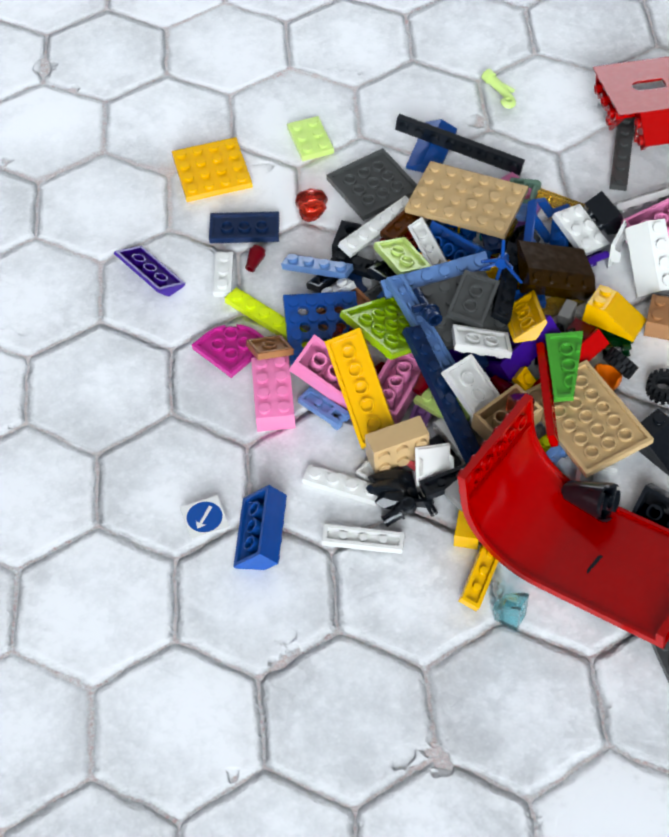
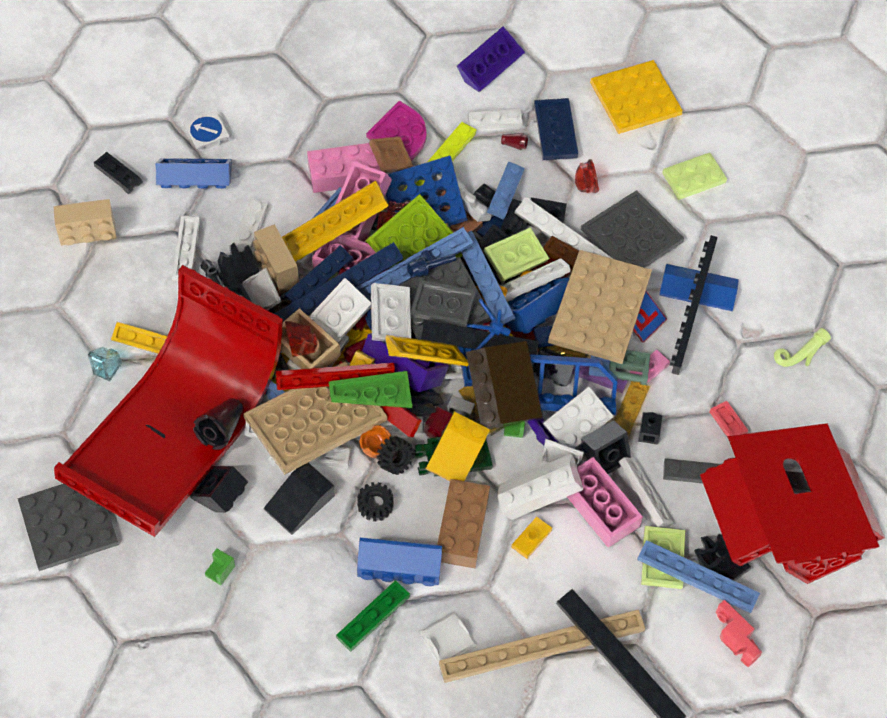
camera: 80 degrees right, 5 degrees up
(251, 606) = (117, 172): none -> black plate
(329, 630) = (84, 222): none -> tan brick
(419, 406) = (320, 274): none -> dark blue plate
(572, 141) = (728, 419): none -> coral plate
(580, 189) = (650, 428): none -> black brick

